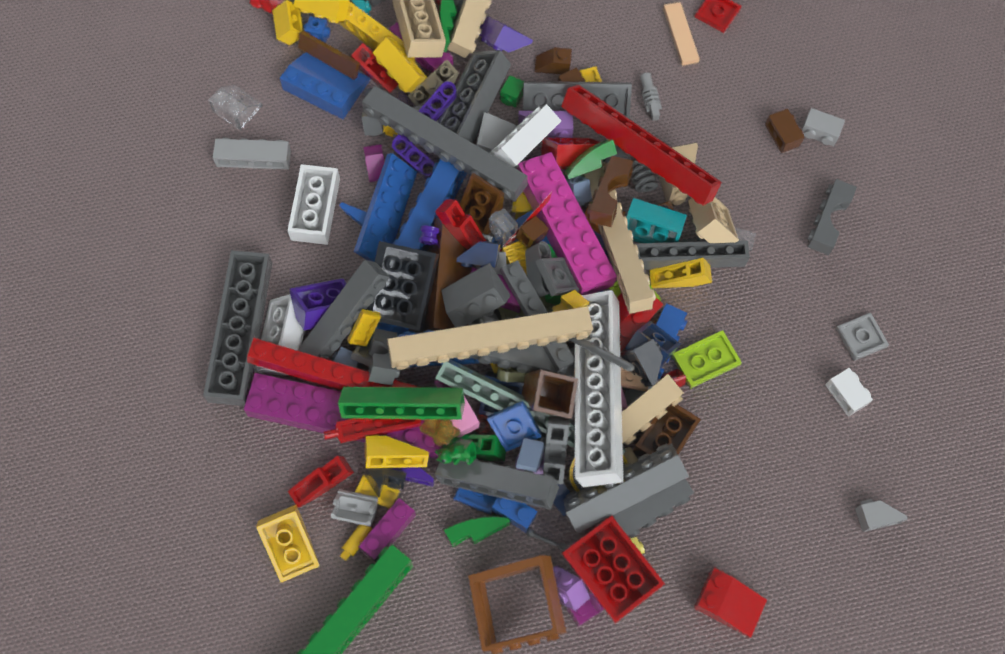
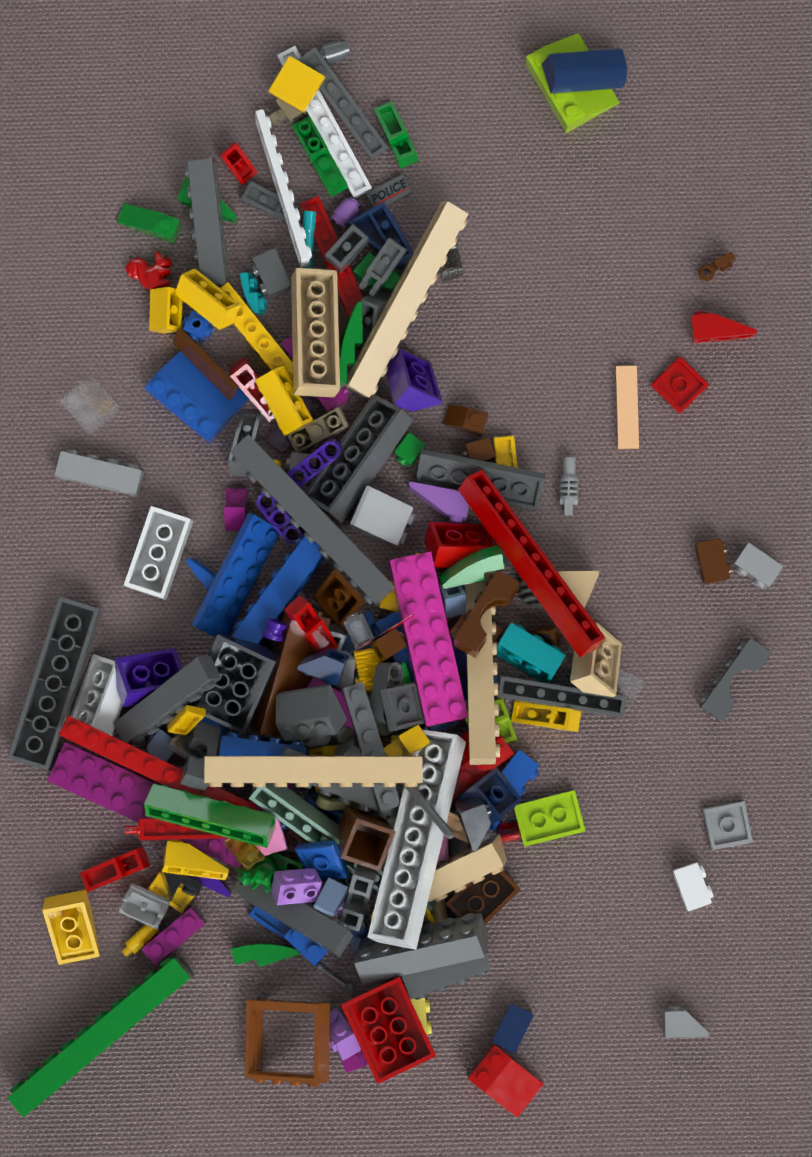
camera: 20 degrees right, 15 degrees up
(495, 452) = (296, 886): none -> medium lavender brick
(526, 136) = (403, 530): white brick -> none
(726, 550) = (512, 1028): none -> dark blue panel

